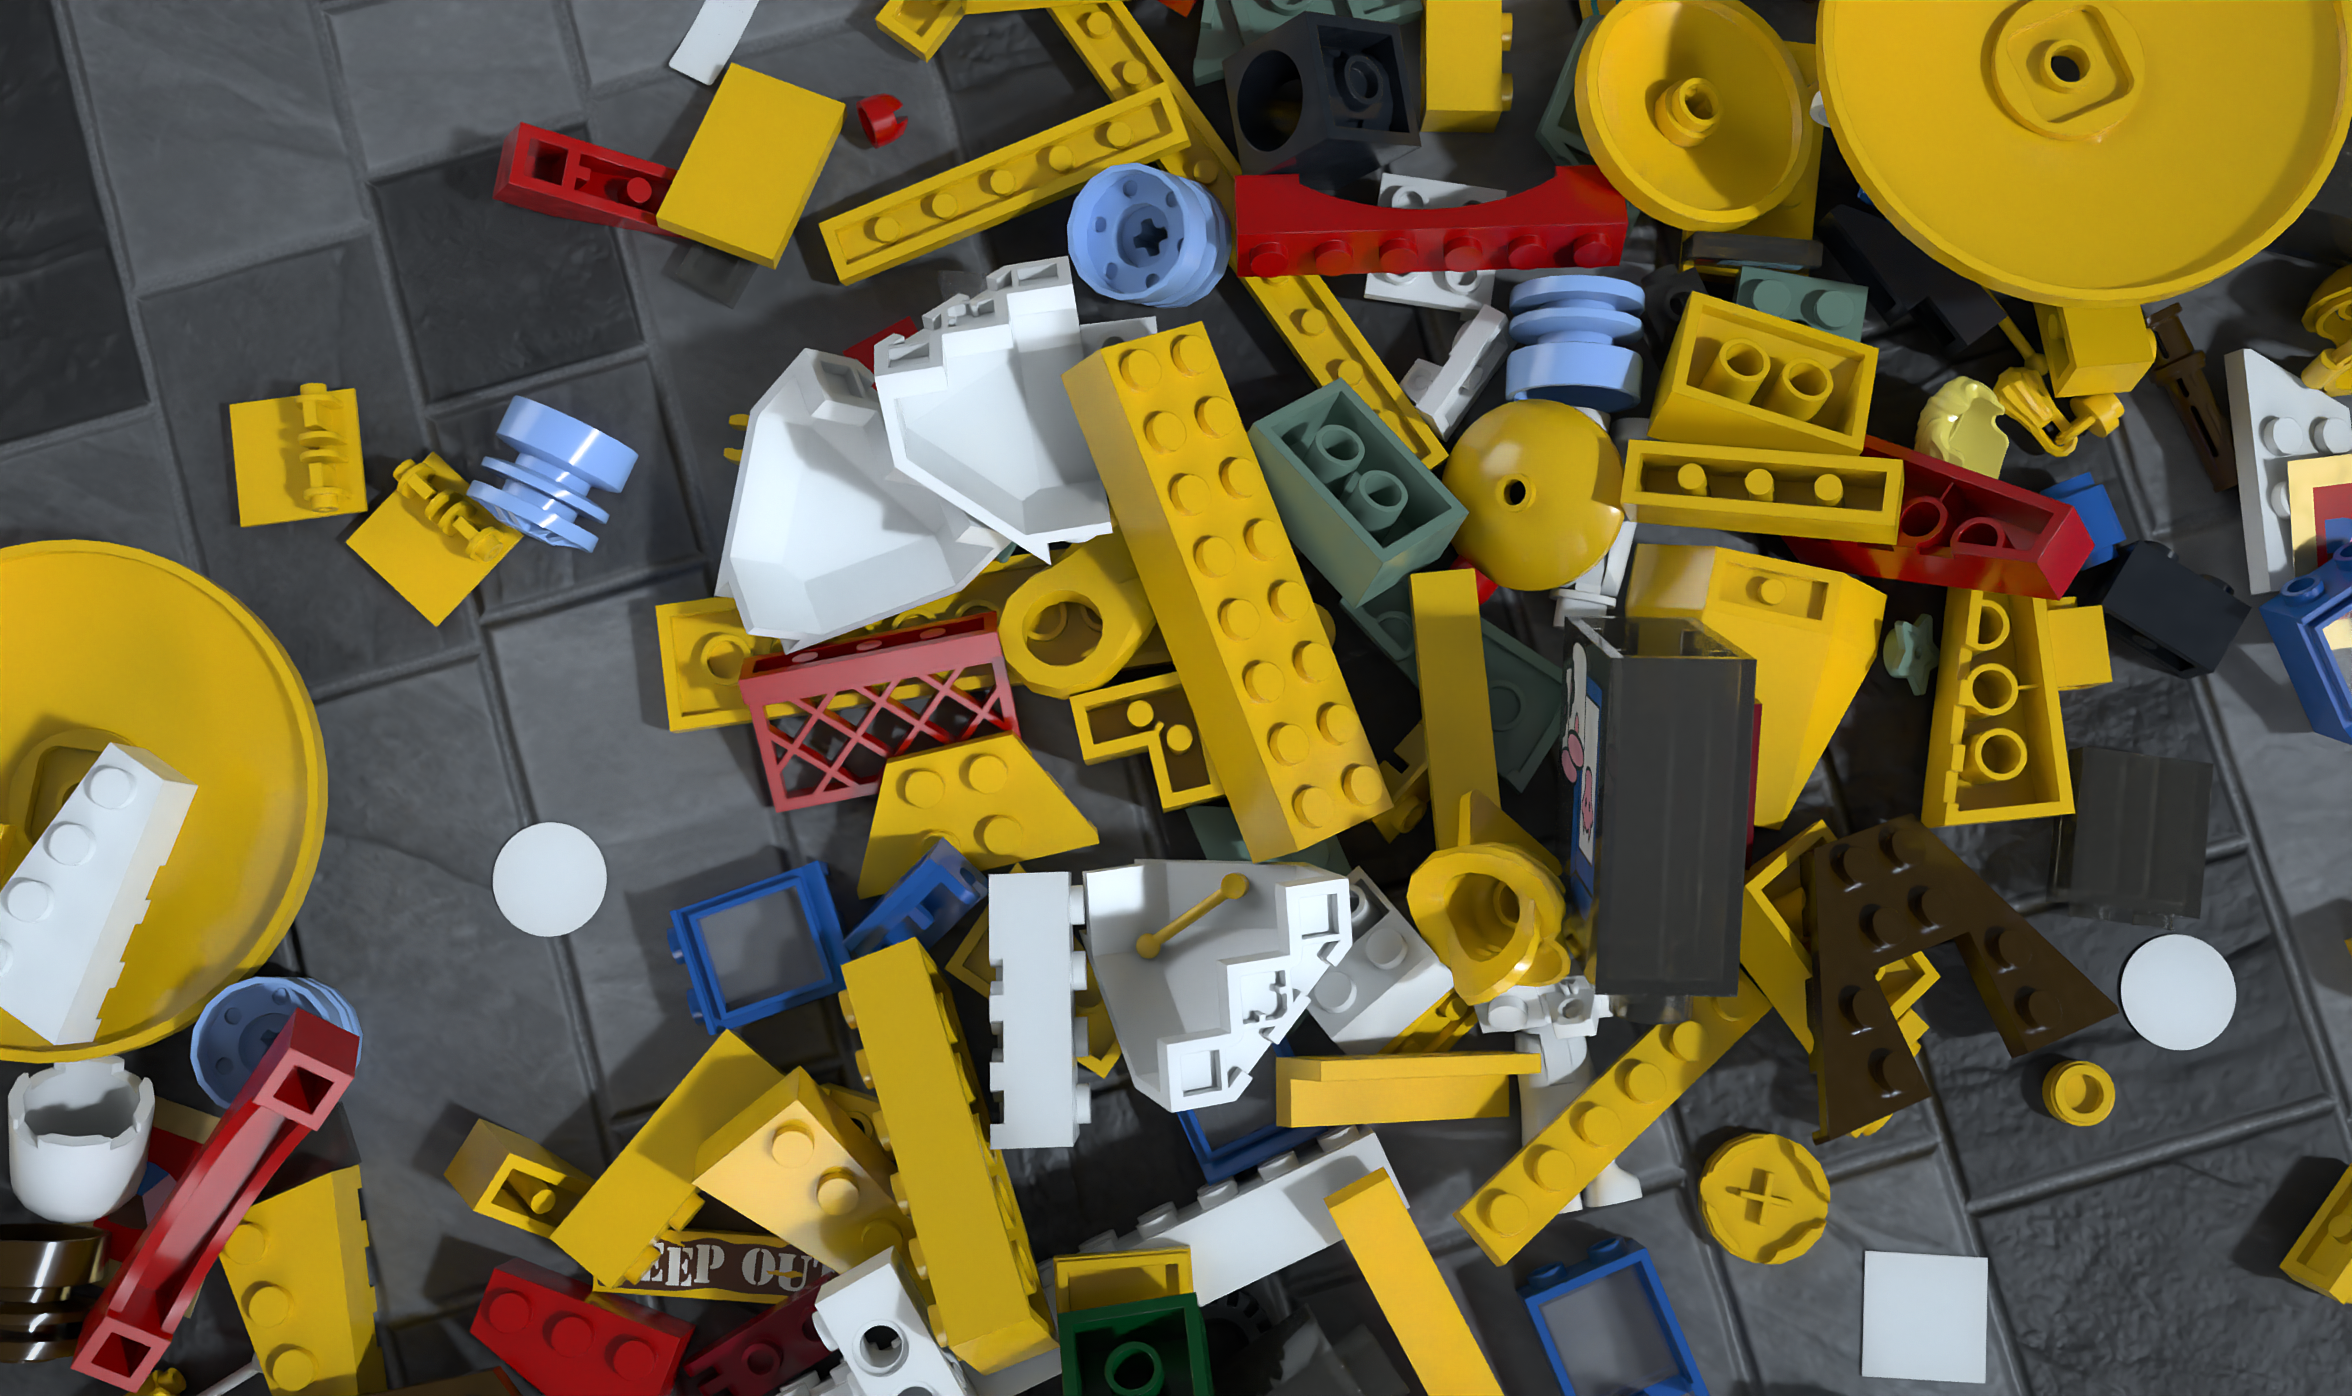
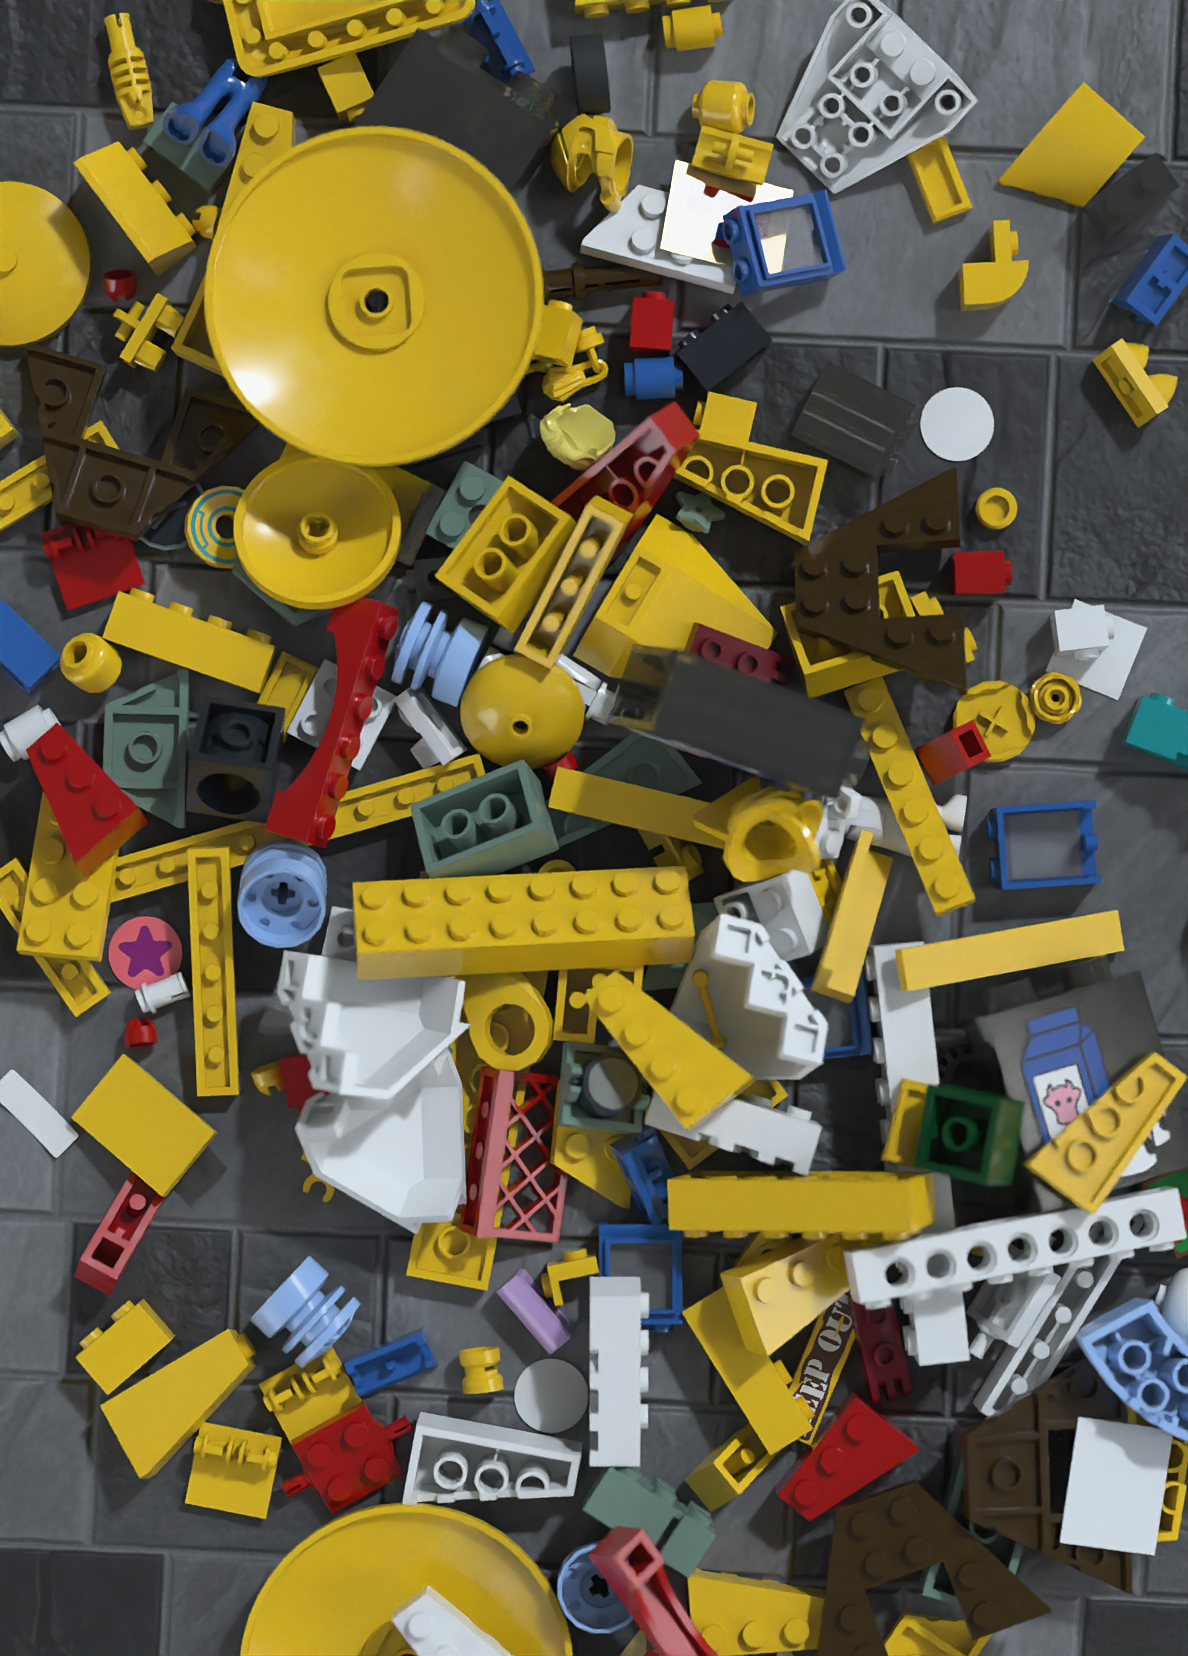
camera: 75 degrees left, 5 degrees up
(363, 335) = (174, 1402): none -> yellow slope
(365, 612) = (347, 1456): none -> red plate
(415, 814) = (487, 1462): none -> white wedge
(415, 1080) = (630, 1500): none -> sand green piece
(427, 242) = (124, 1346): none -> yellow brick
(522, 627) = (391, 1362): none -> blue hinge
(551, 762) = (481, 1370): none -> yellow wheel
(603, 959) = (616, 1370): none -> white wedge
(664, 814) = (535, 1311): none -> lavender brick
(748, 845) = (573, 1265): none -> yellow bracket
(875, 313) = (268, 1076): none -> yellow hinge
(949, 128) = (162, 993): none -> white pin
(999, 92) = (144, 951): none -> coral sticker
(1022, 796) = (601, 1089): none -> piece
(1100, 882) = (674, 1059): none -> yellow wedge
(1445, 157) = (288, 686): none -> yellow tile
(1702, 1152) = (953, 752): none -> red brick
(1855, 1286) = (1068, 693): none -> yellow plate
(1950, 1285) = (1081, 632): none -> white brick
(1979, 1101) = (979, 573): none -> red brick
(2160, 492) = (651, 324): none -> red brick

